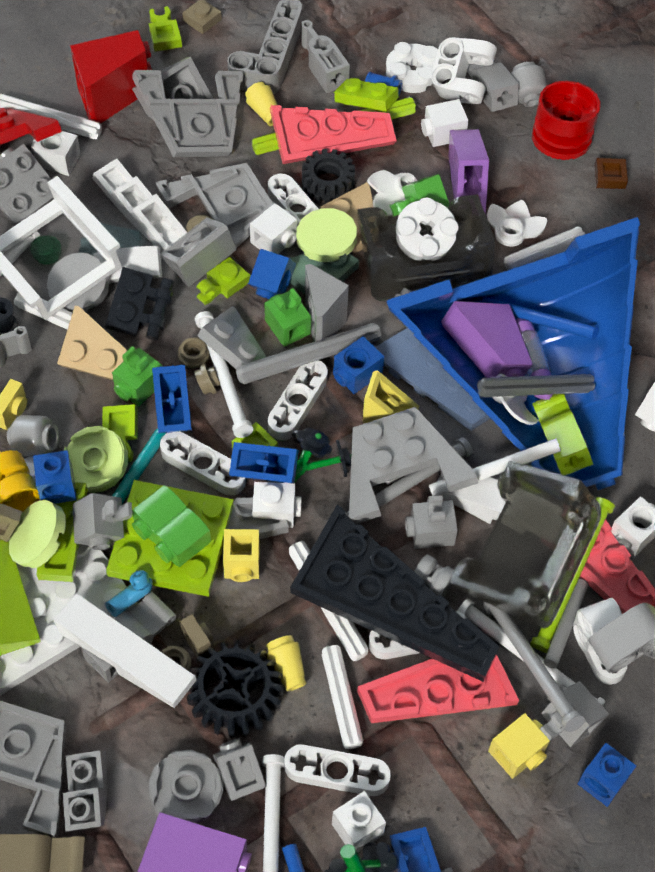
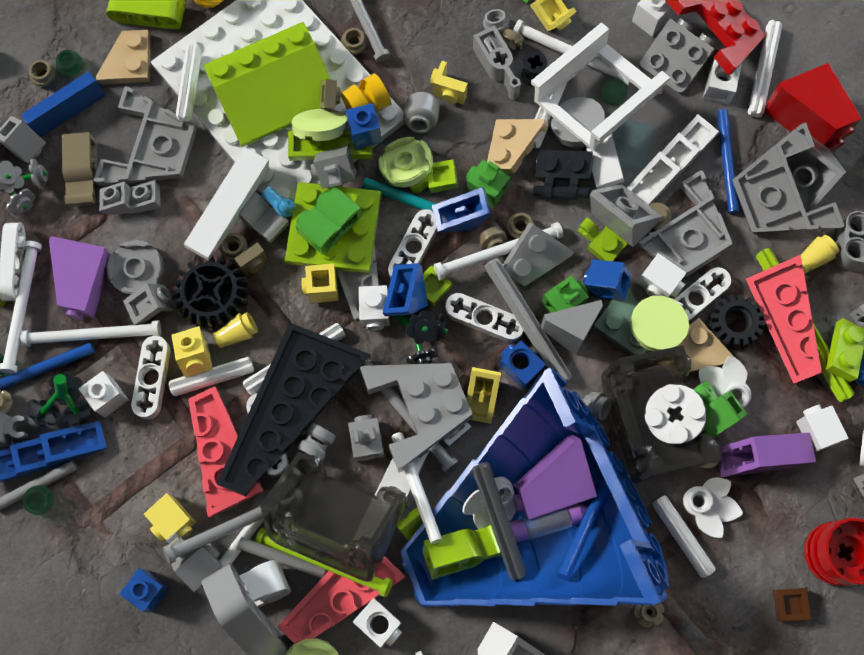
camera: 90 degrees right, 15 degrees up
(149, 161) = (728, 160): none -> blue bar
(313, 709) = (194, 357): none -> light yellow brick

